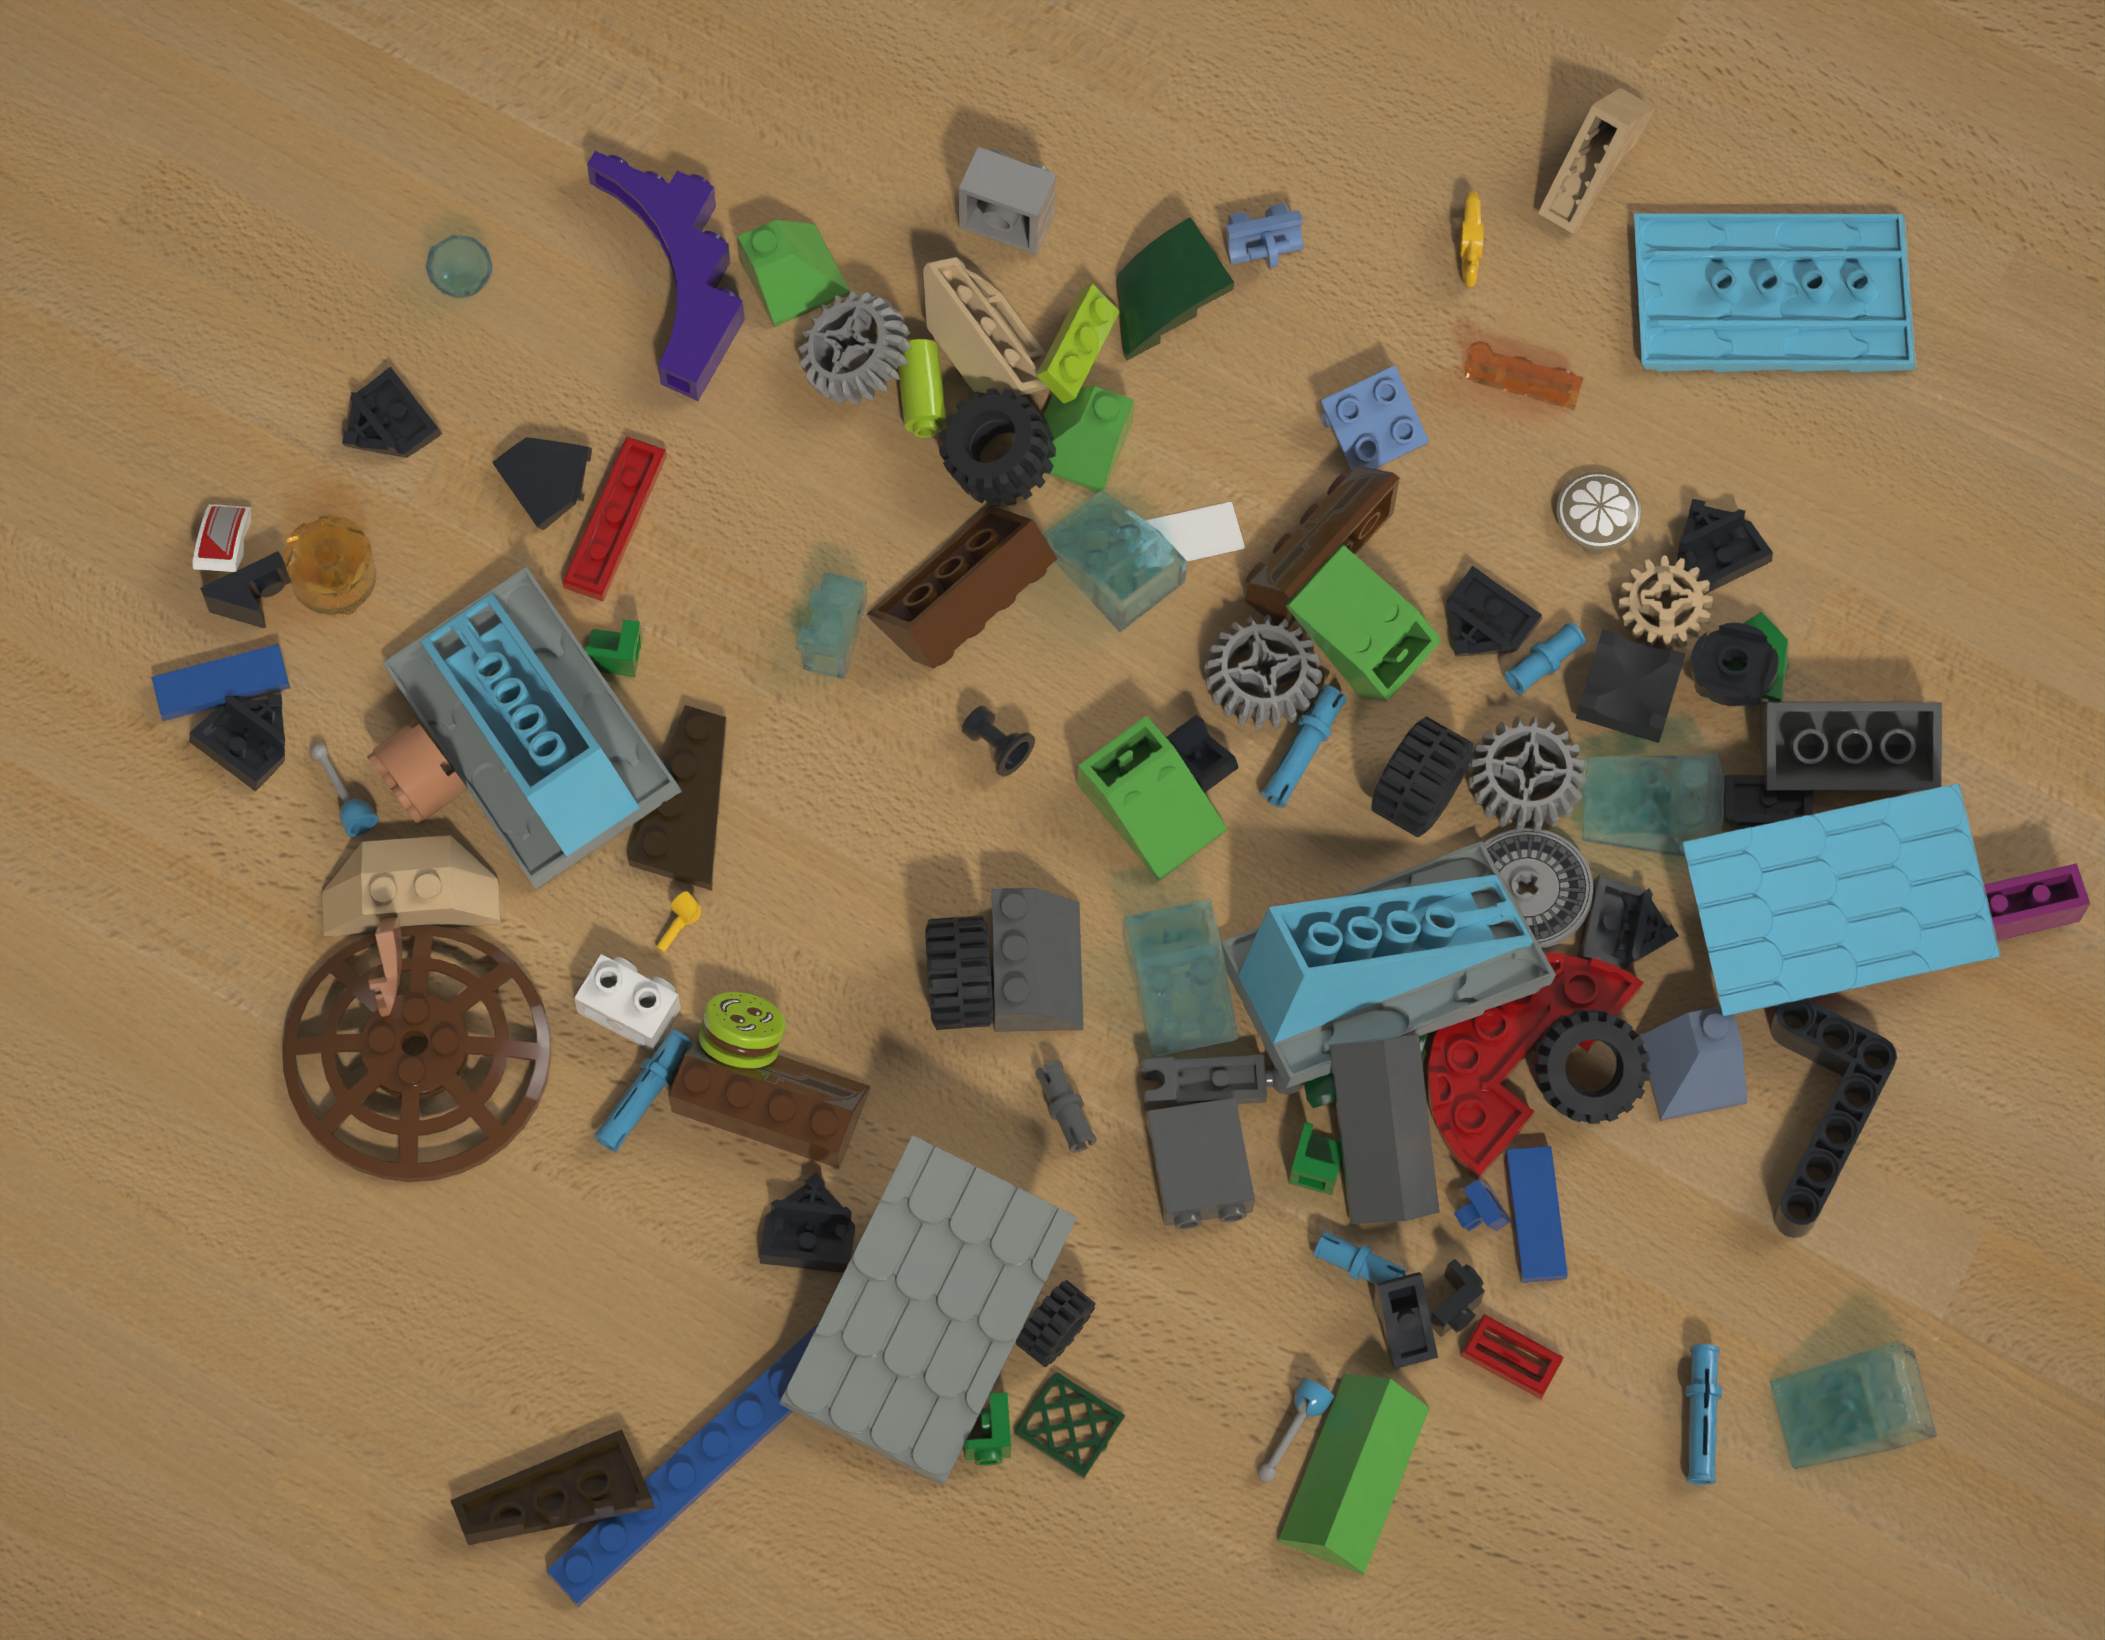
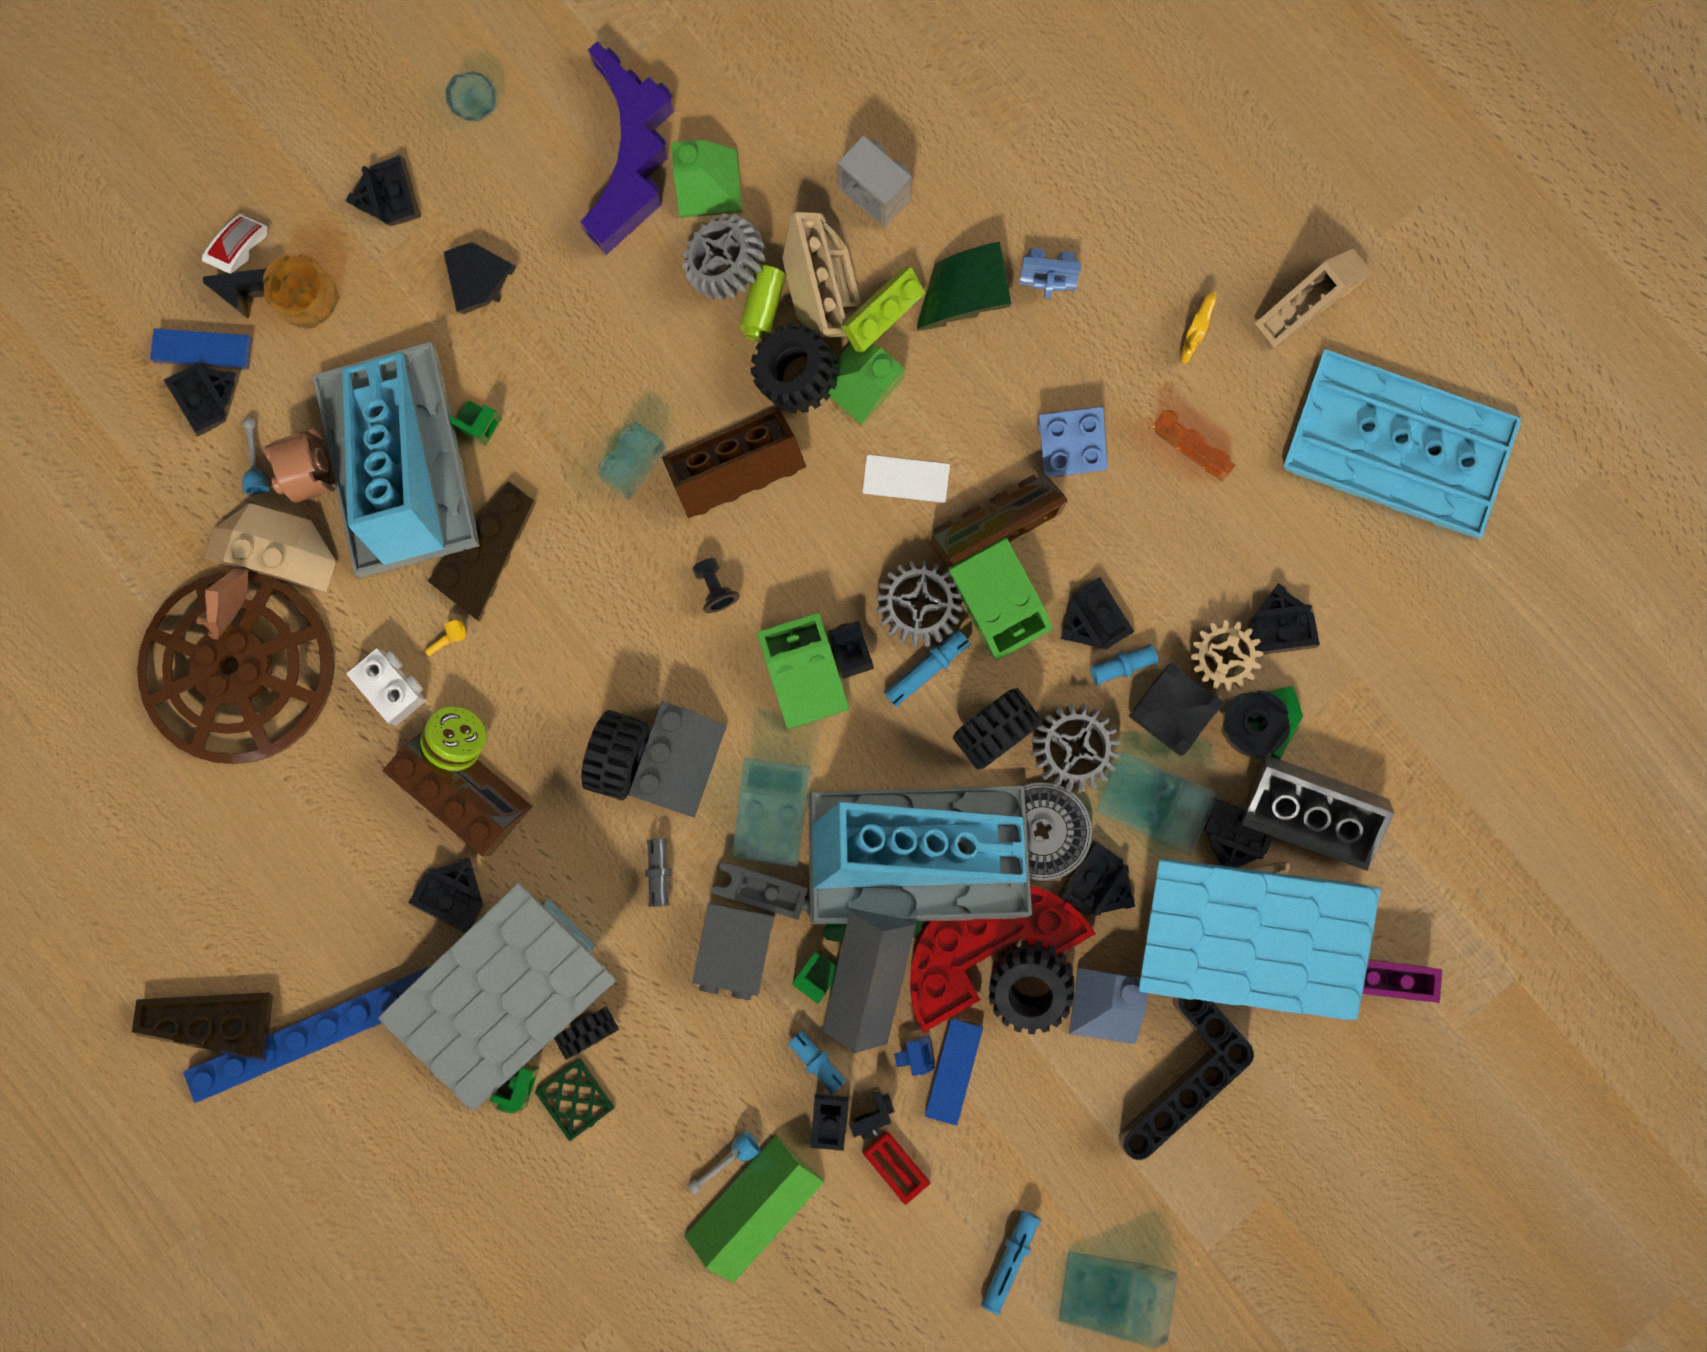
camera: 25 degrees right, 15 degrees up
(614, 519) = (514, 323): red tile -> none
(637, 1099) = (385, 746): dark azure pin -> none
(1116, 559) = (847, 479): clear light blue slope -> none
(1598, 511) = (1207, 566): dish -> none

